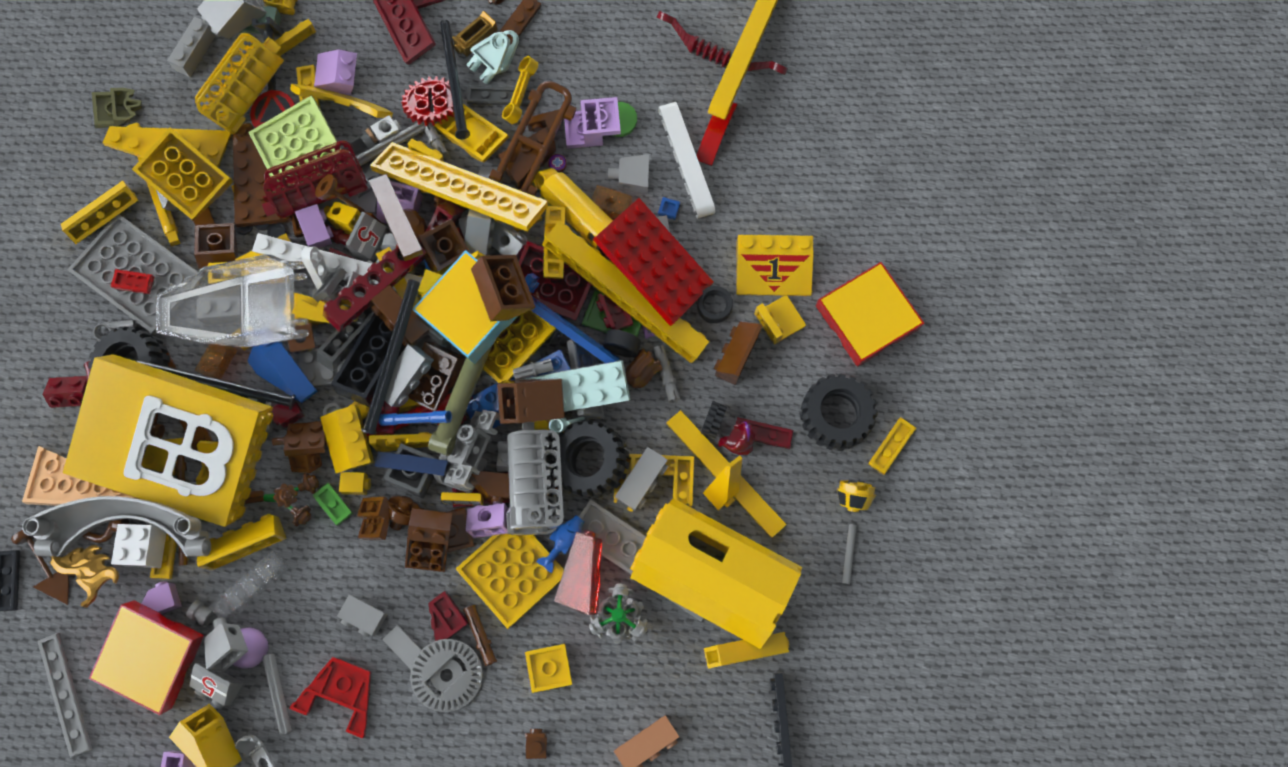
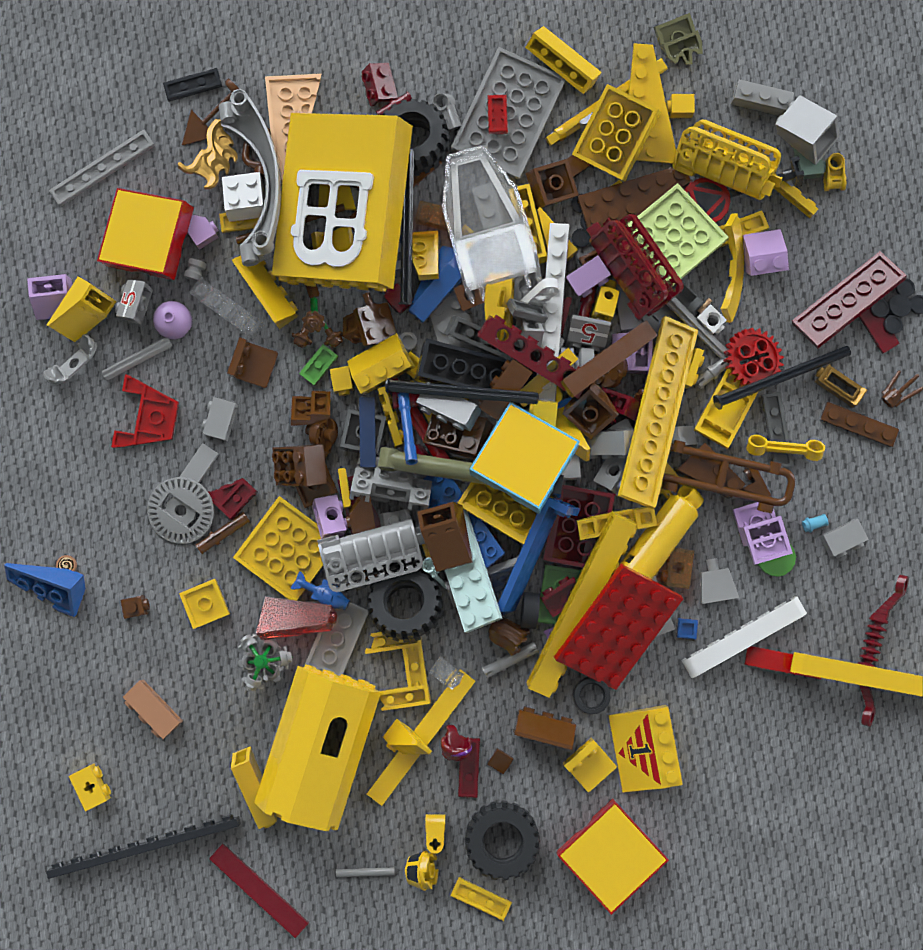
camera: 80 degrees right, 10 degrees up
(177, 116) = (681, 106): none -> yellow brick
(223, 645) = (166, 302): light grey torso -> none
(252, 374) = (426, 254): none -> yellow wing
(314, 571) = (252, 363): none -> reddish brown bracket
(327, 188) = (623, 284): reddish brown piece -> none
(472, 434) = (399, 476): light grey bush -> none
(494, 53) = (818, 412): light aqua piece -> none
(502, 287) = (544, 488): reddish brown slope -> none
(533, 369) = (478, 531): light grey axle -> none
(557, 162) = (713, 503): tile -> none
(595, 83) = (814, 523): none -> medium azure pin
(613, 58) = (843, 538): none -> light grey brick
(642, 479) = (395, 657): light grey brick -> none
(667, 434) = (446, 673): none -> clear brick
(714, 419) = (470, 717): black tyre -> none
(762, 401) = (500, 760): none -> reddish brown slope
(817, 476) = (435, 829): none -> yellow piece
(850, 666) = (259, 890): none -> dark red tile

